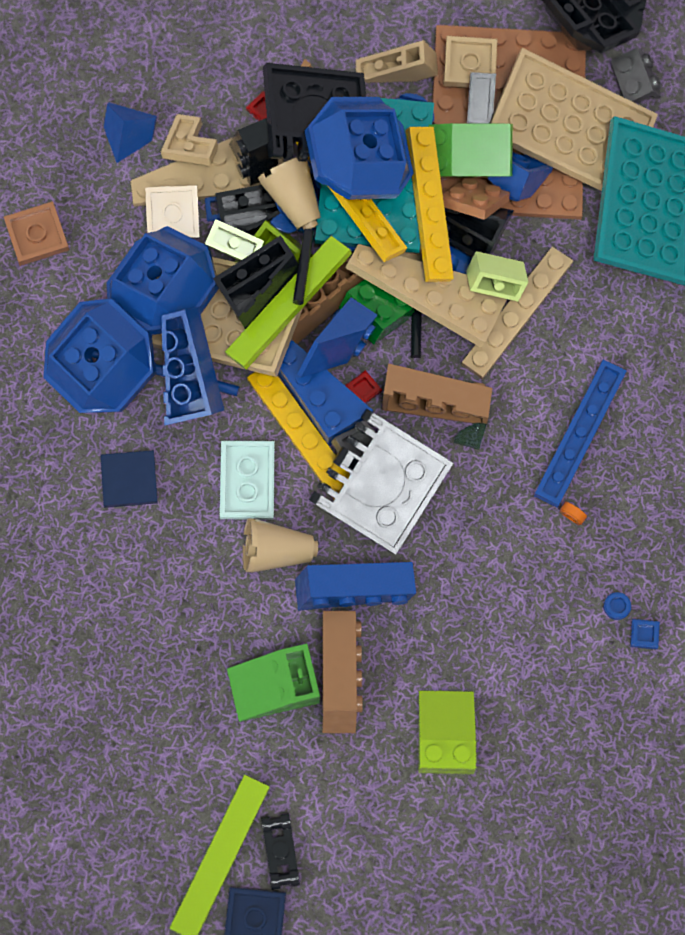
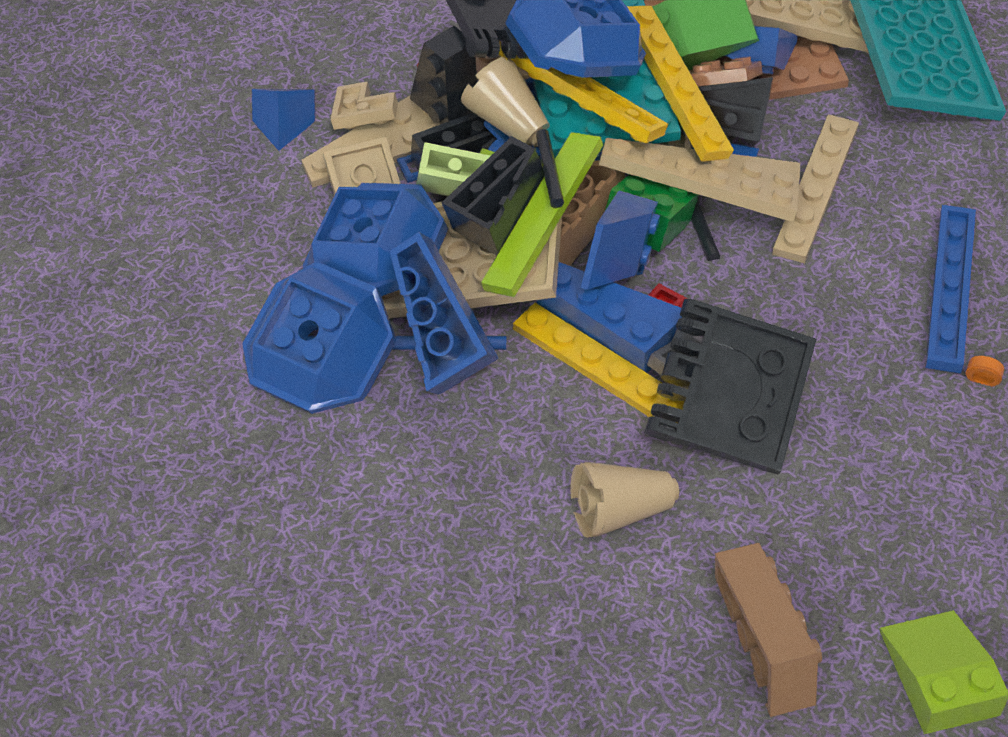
camera: 10 degrees left, 20 degrees down
(36, 233) = (199, 236): nougat plate -> none
(129, 479) = (396, 471): dark blue tile -> none
(247, 480) = (551, 434): light aqua tile -> none
(274, 683) = (683, 663): bright green slope -> none
(354, 585) = (740, 515): blue wedge -> none
(435, 396) = (760, 282): medium nougat wedge -> none
(471, 436) = (819, 322): clear green tile -> none
(497, 276) = (781, 146): yellowish green brick -> none

